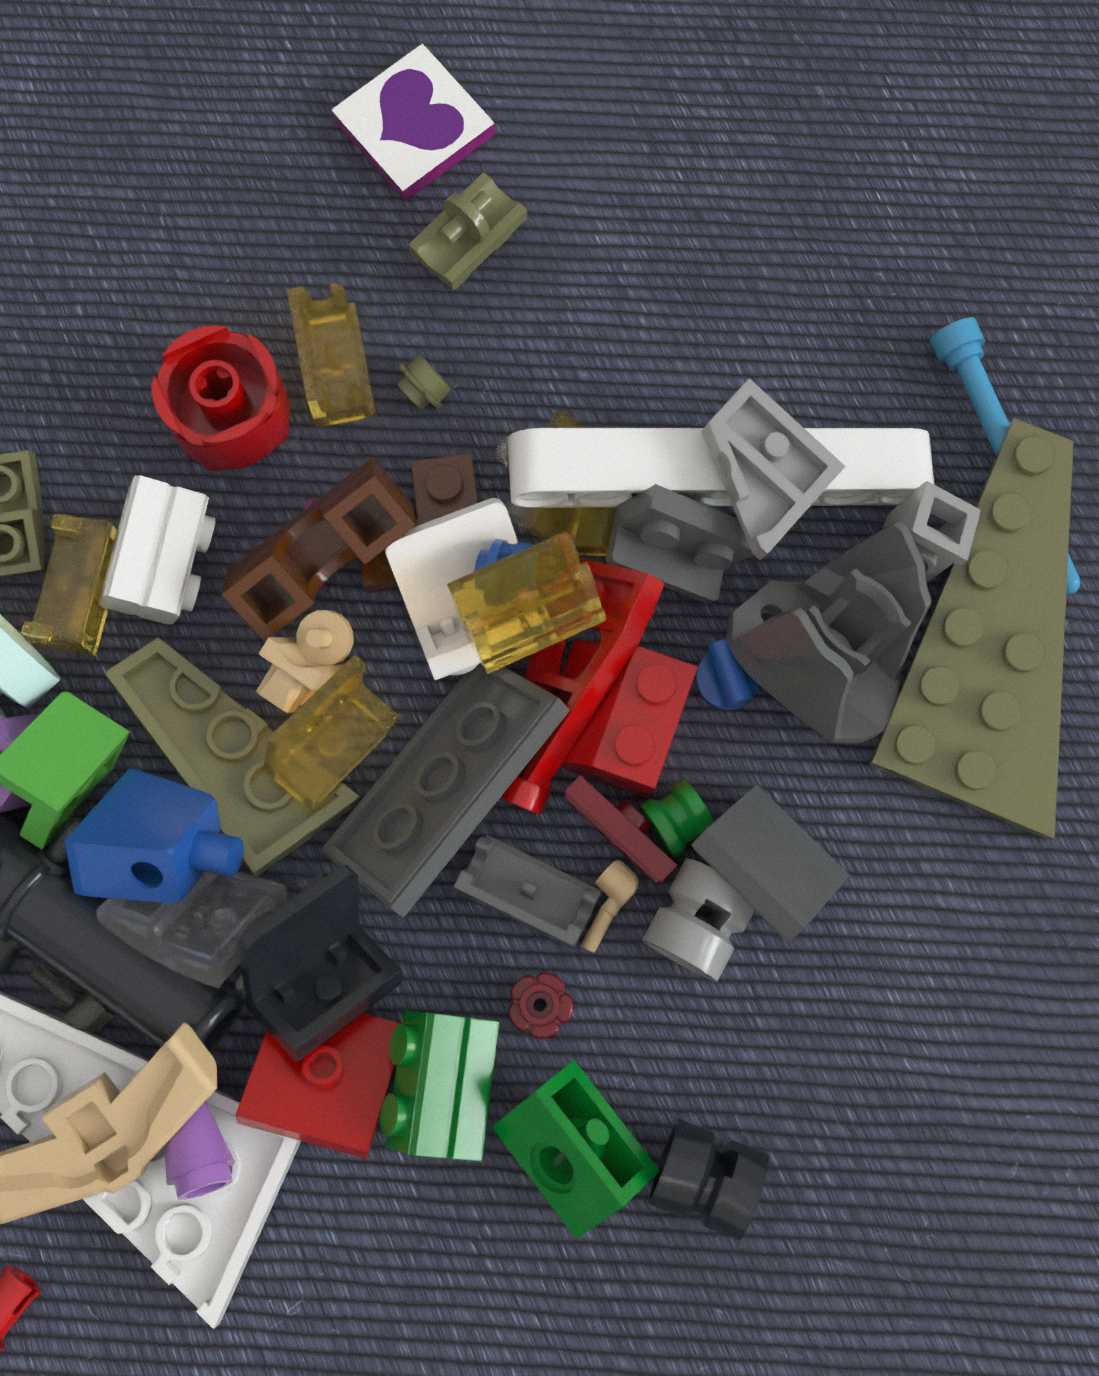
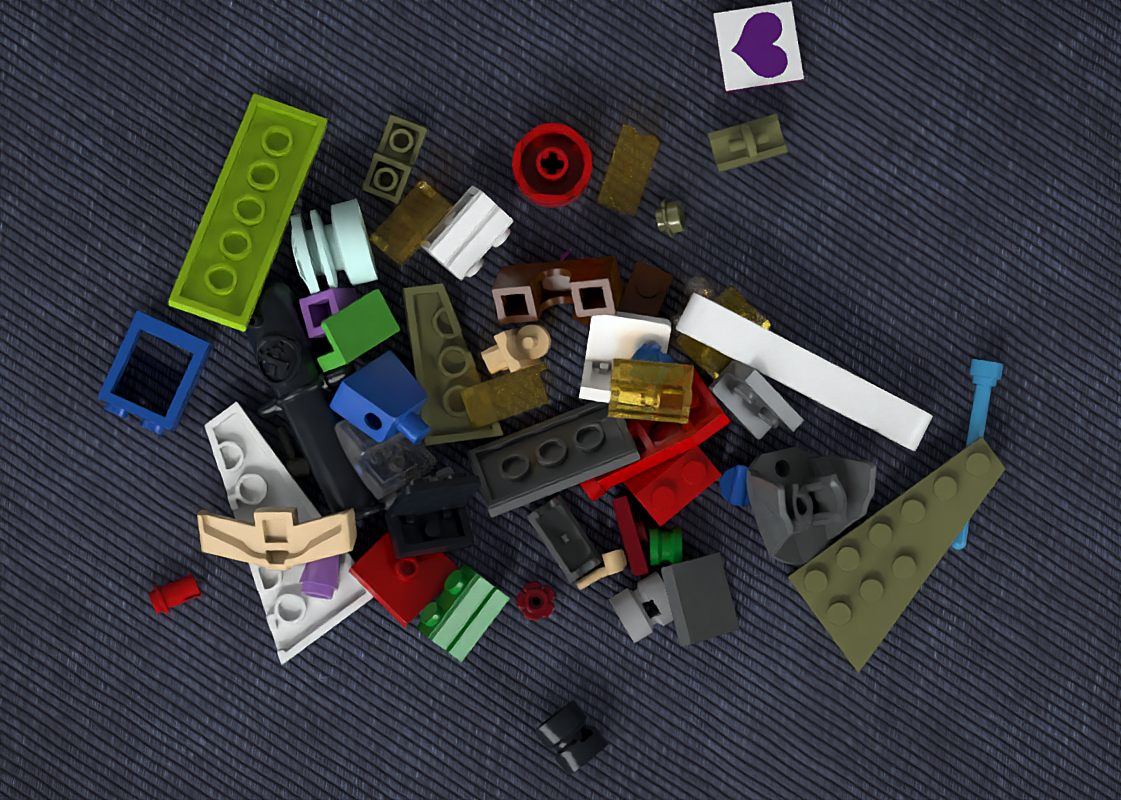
camera: 25 degrees right, 10 degrees up
(576, 1150) = (512, 683): green brick -> none
(767, 465) = (822, 391): light grey wing -> none
(941, 546) = (890, 476): light grey brick -> none

